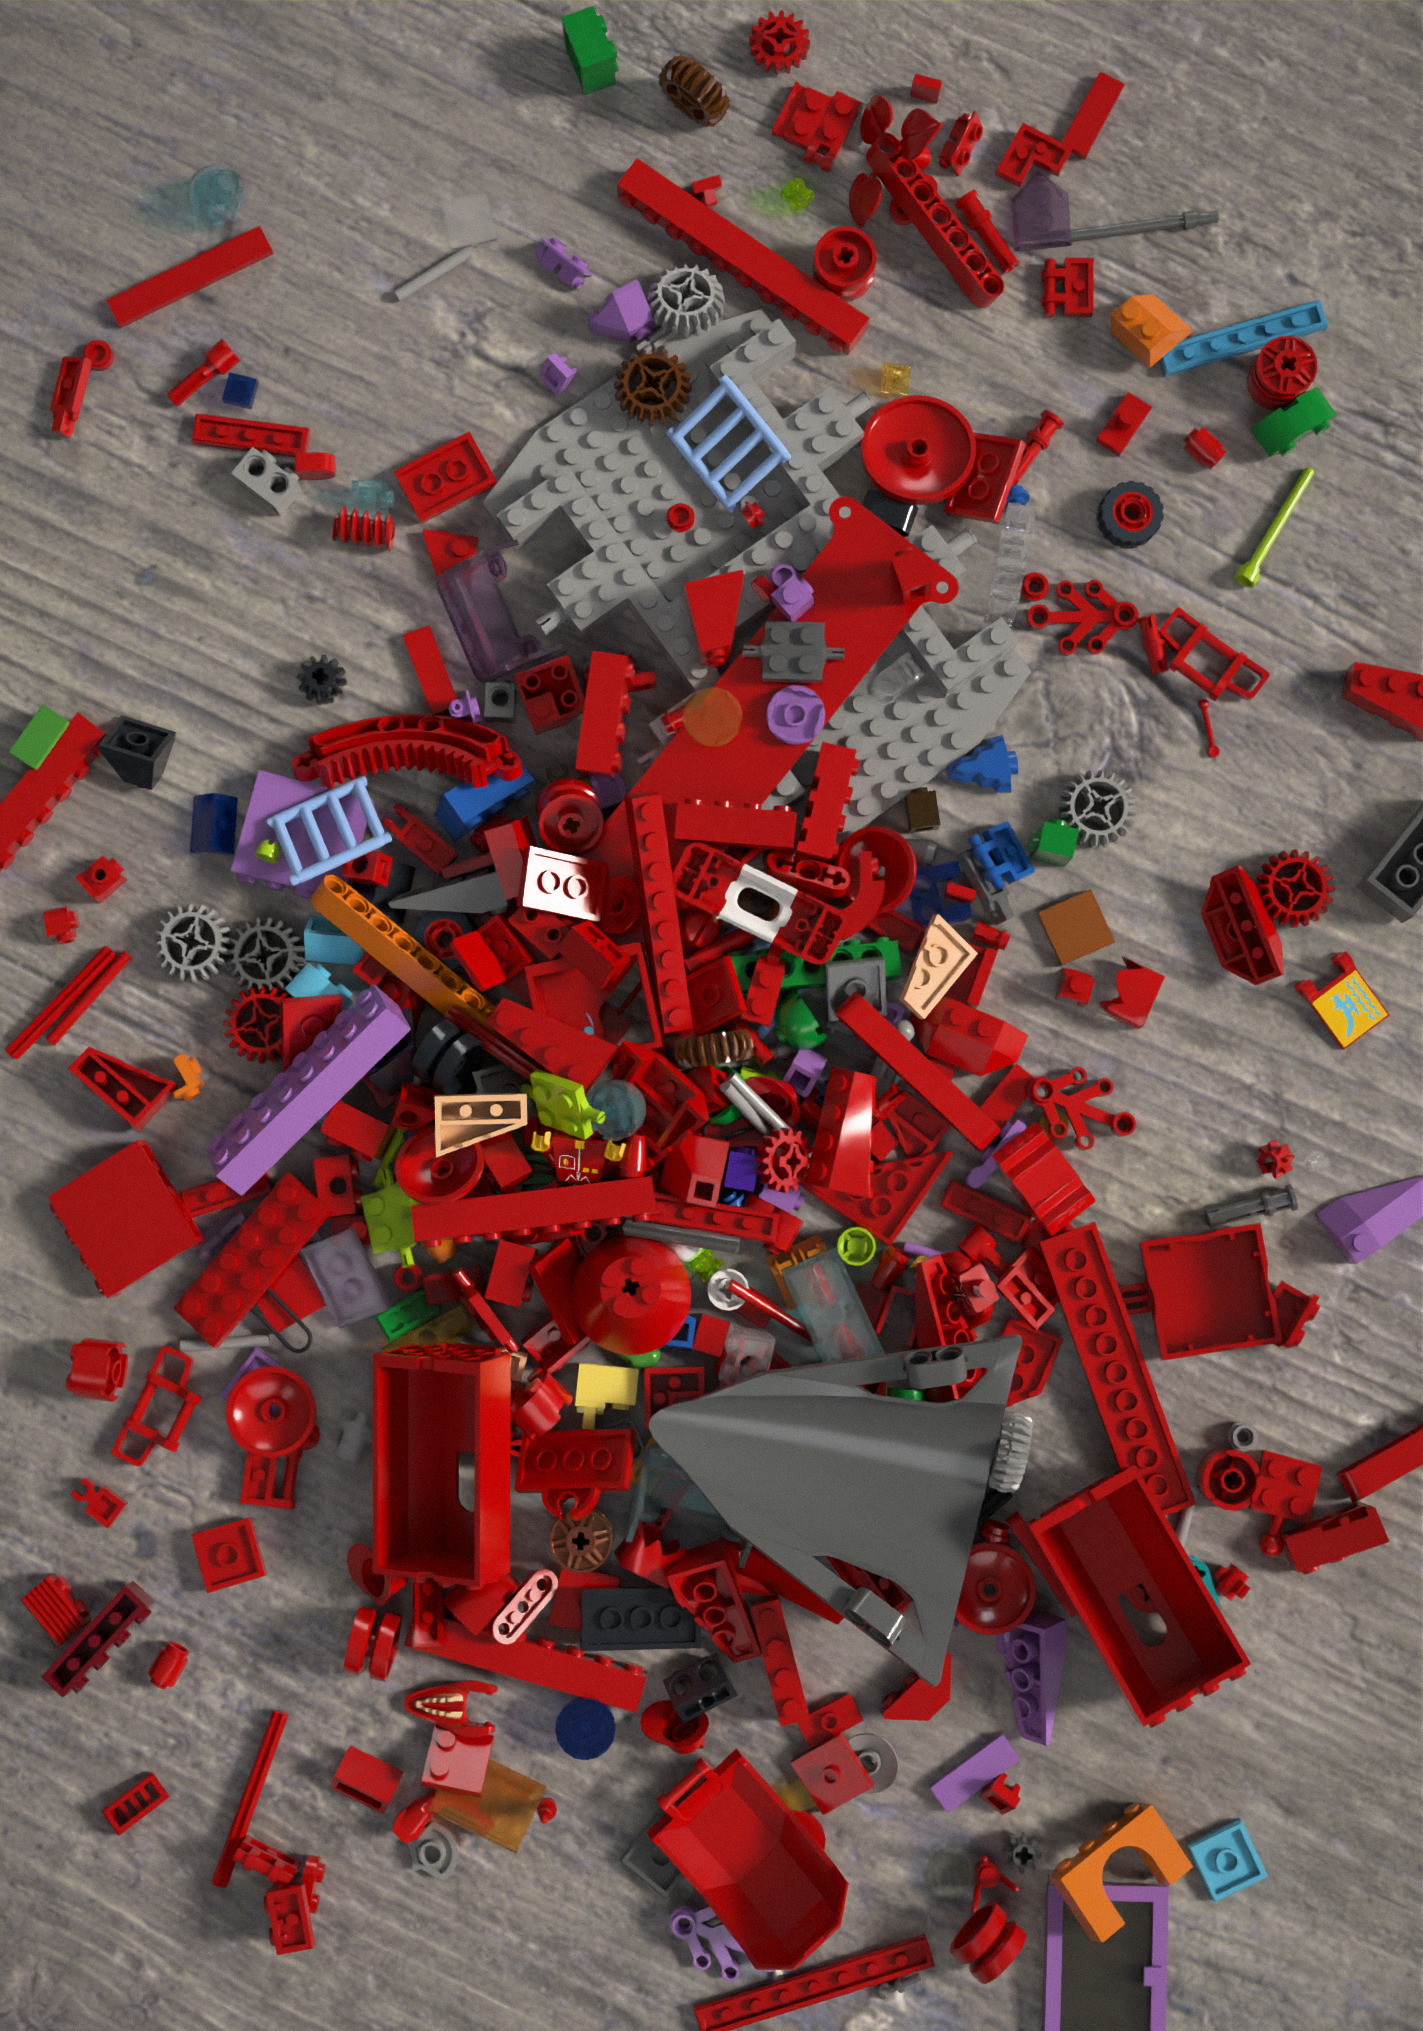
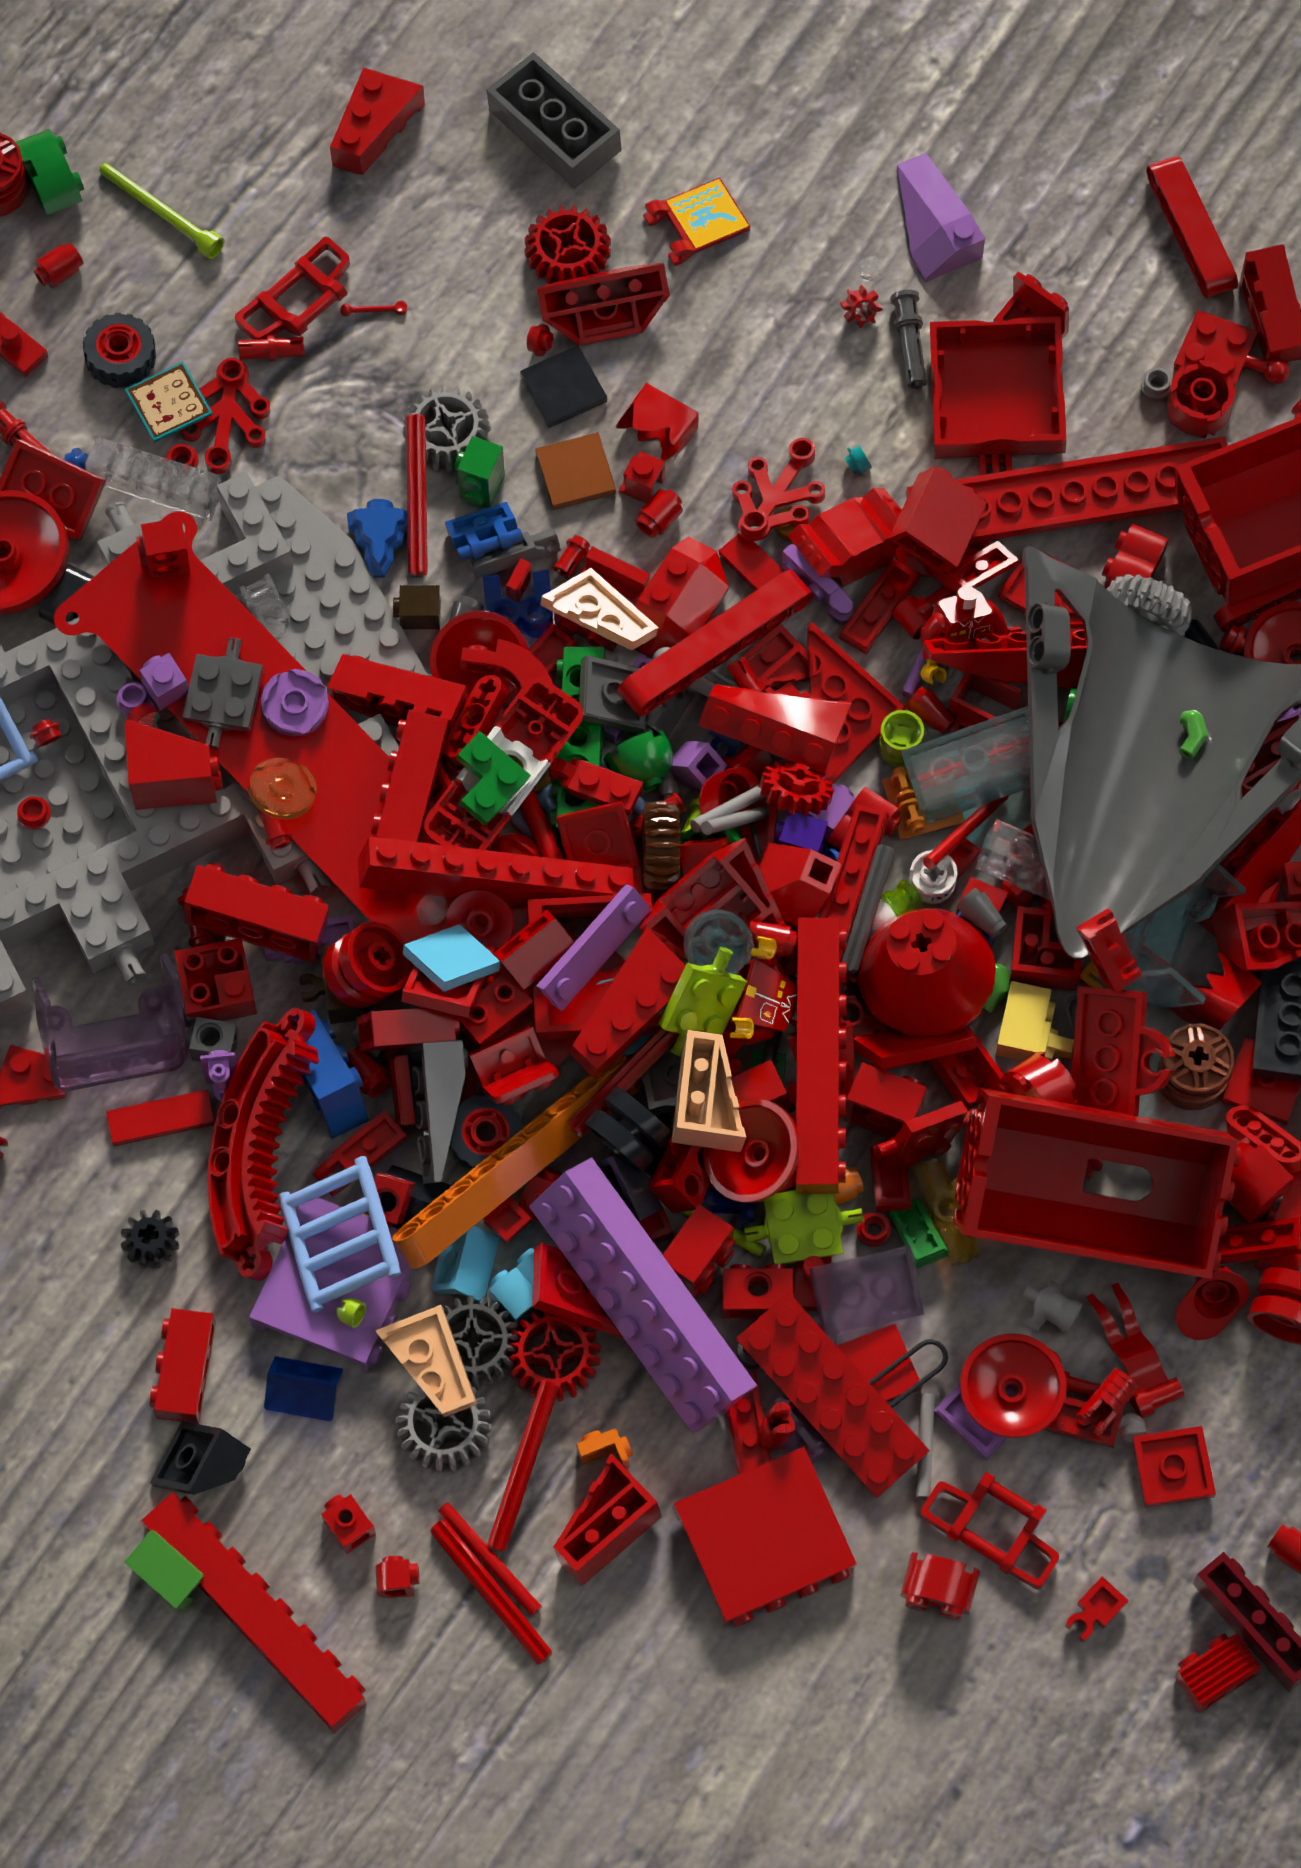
camera: 80 degrees left, 15 degrees down
(163, 1012) = (523, 1465): none -> red axle
(217, 724) = (183, 1365): none -> red brick
(221, 1217) = (784, 1427): none -> red hinge
(236, 924) = (432, 1358): none -> light nougat wing
(259, 1516) = (1130, 1426): none -> clear hinge
(275, 1496) = (1111, 1396): none -> red hinge
(319, 1515) = (1137, 1357): none -> red flag
(574, 884) = (451, 957): none -> medium azure tile
(601, 1004) = (594, 947): none -> medium lavender plate
(623, 862) = (432, 910): none -> clear plate
(656, 1453) = (1109, 951): none -> red hinge
(688, 1335) = (981, 912): none -> dark grey cone
(745, 900) = (498, 777): none -> green plate
(888, 1509) = (1197, 733): none -> bright green arm
(1026, 791) = (416, 495): none -> red axle
(1044, 1006) = (659, 513): none -> red brick
(1058, 1253) = (938, 519): none -> red brick
(1060, 1436) = (1137, 555): none -> red brick
(1085, 565) = (168, 402): none -> piece
(1122, 1175) = (857, 460): none -> teal plate
(1157, 905) = (563, 386): none -> black tile
(1197, 877) = (540, 339): none -> red plate

